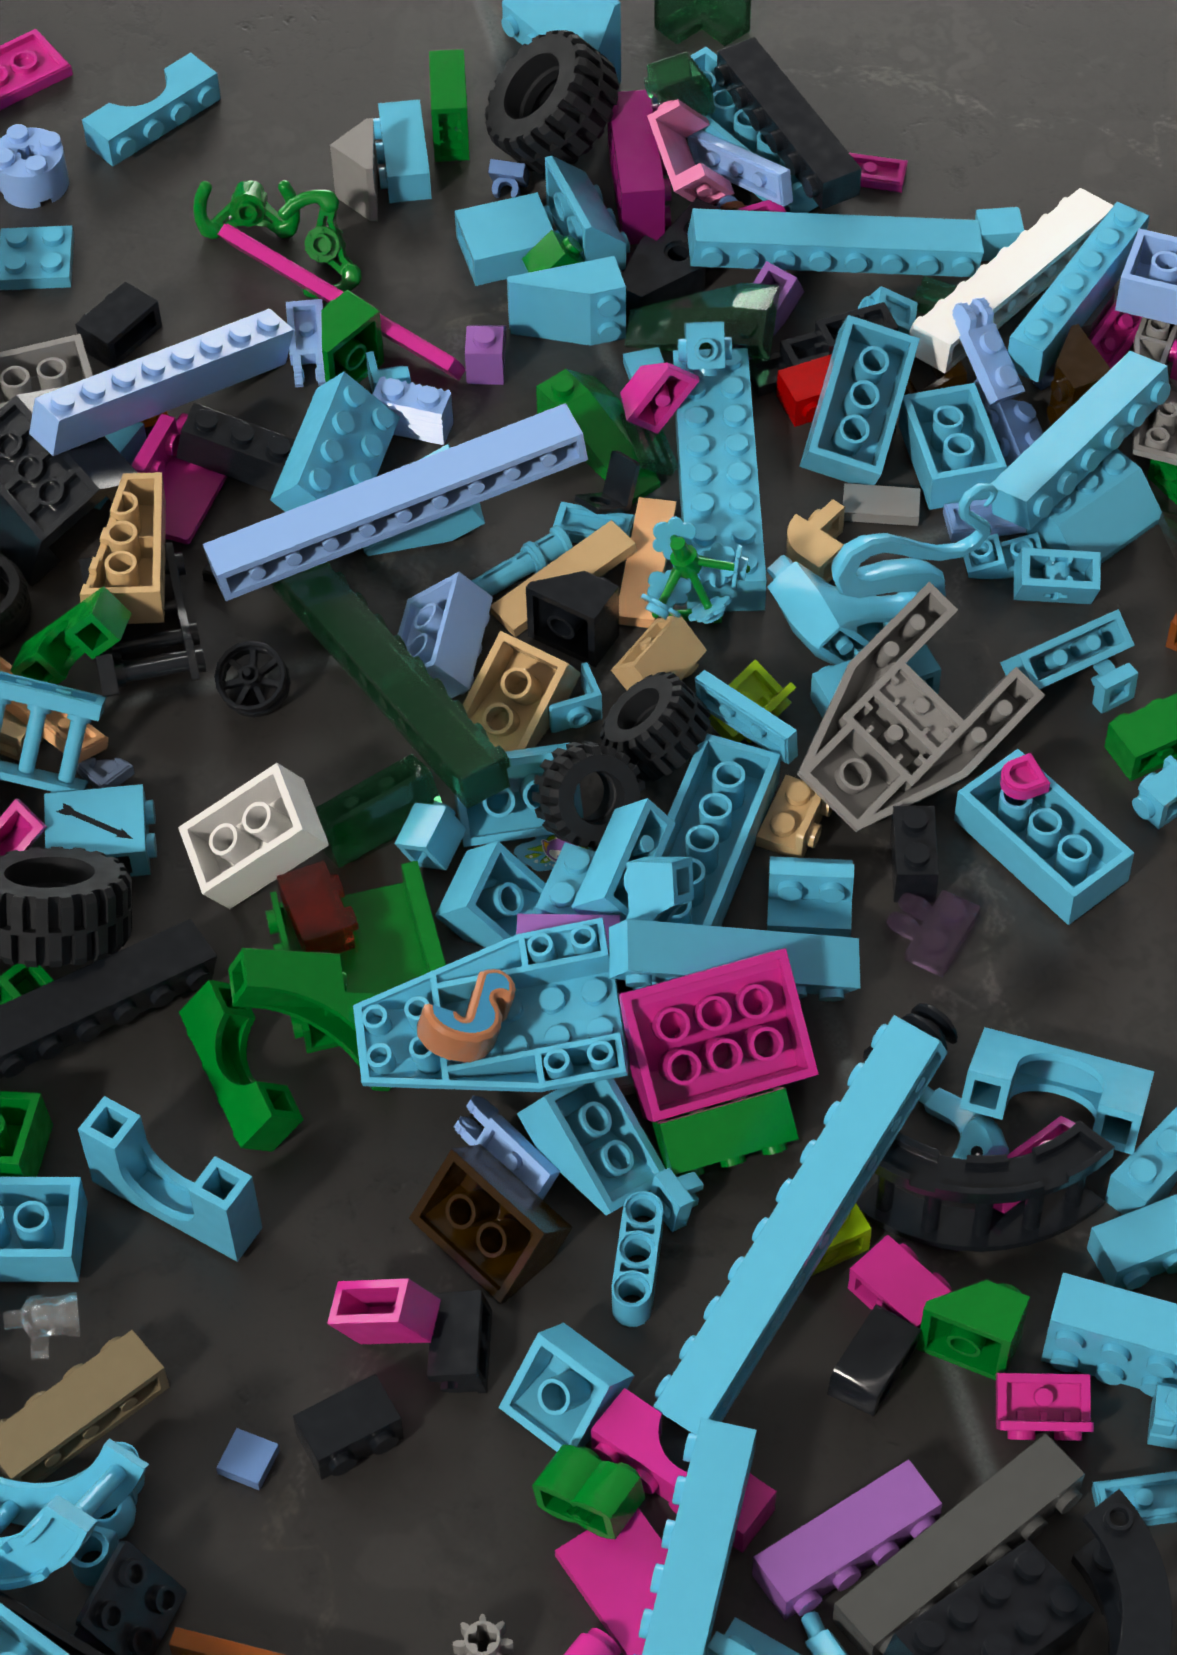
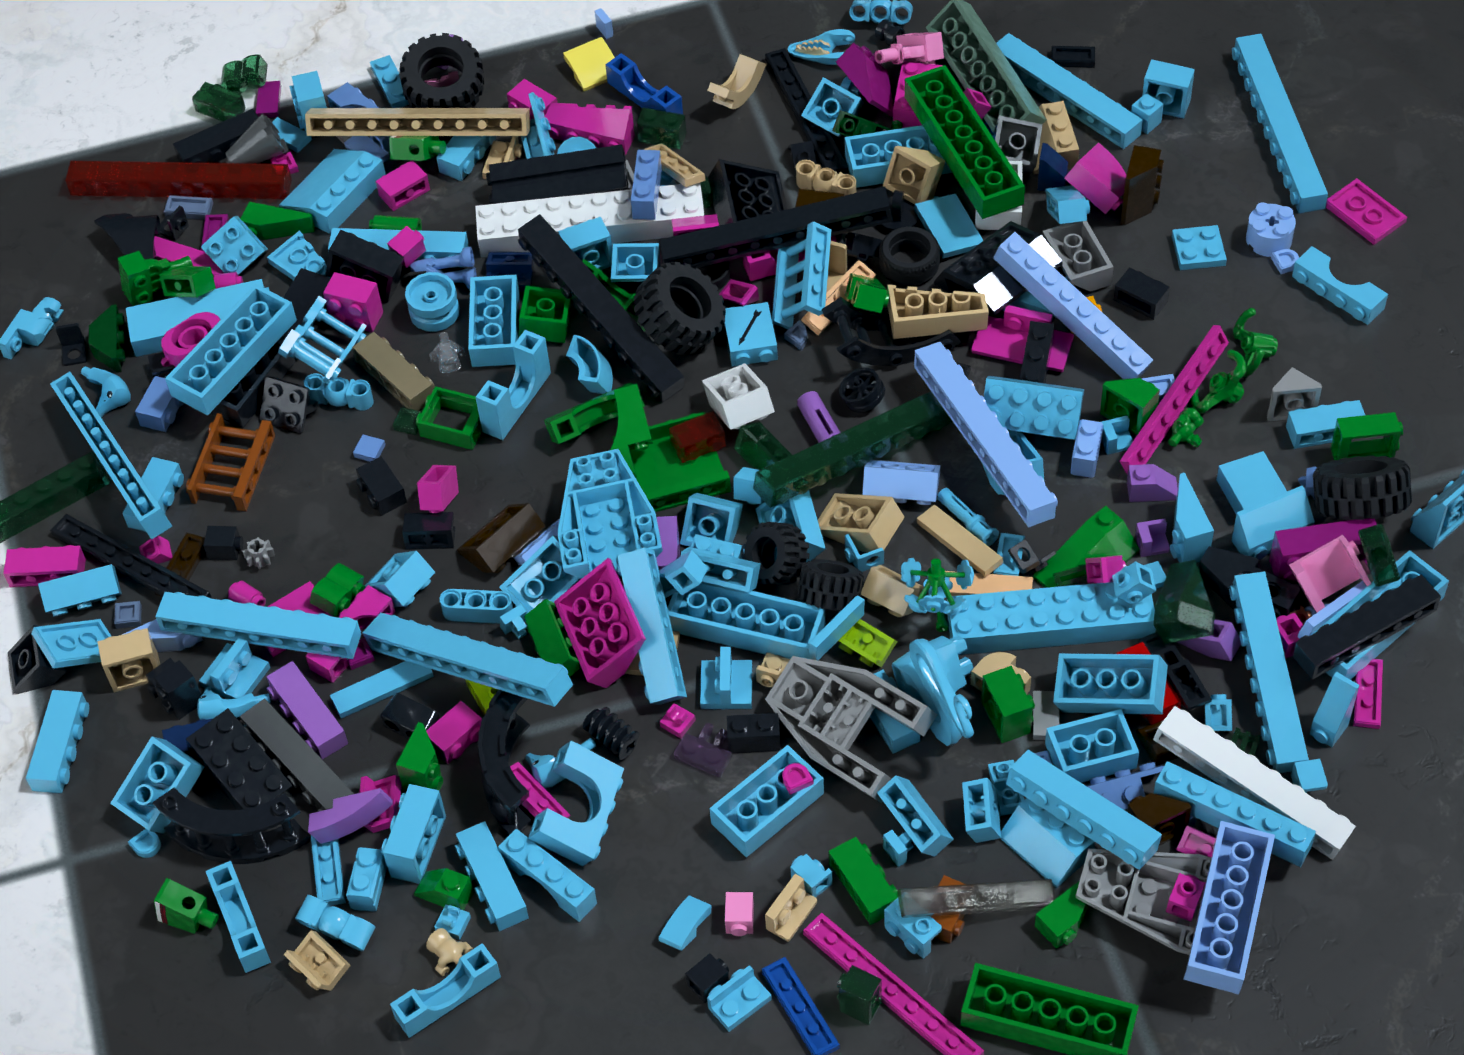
camera: 90 degrees right, 0 degrees up
(84, 166) = (1284, 260): none -> light blue tile
(129, 1065) = (593, 366): none -> medium azure brick
(190, 1391) = (406, 421): none -> clear green tile
(217, 1262) = (454, 400): none -> green window
(356, 727) = (817, 416): none -> medium lavender piece
(386, 299) = (1185, 426): none -> green piece
(475, 1034) = (597, 500): nougat animal -> none
(553, 252) = (1225, 511): green brick -> none
(574, 614) = (918, 539): black slope -> none
(583, 358) = (1151, 537): none -> medium lavender panel
(797, 1430) = (379, 687): none -> medium azure tile
(880, 964) = (677, 720): none -> dark pink tile
(885, 509) = (1007, 704): none -> green brick
(907, 176) = (1334, 710): none -> medium azure slope
(987, 351) = (1153, 759): light blue hinge -> none
(1093, 1434) = (348, 815): none -> medium lavender slope

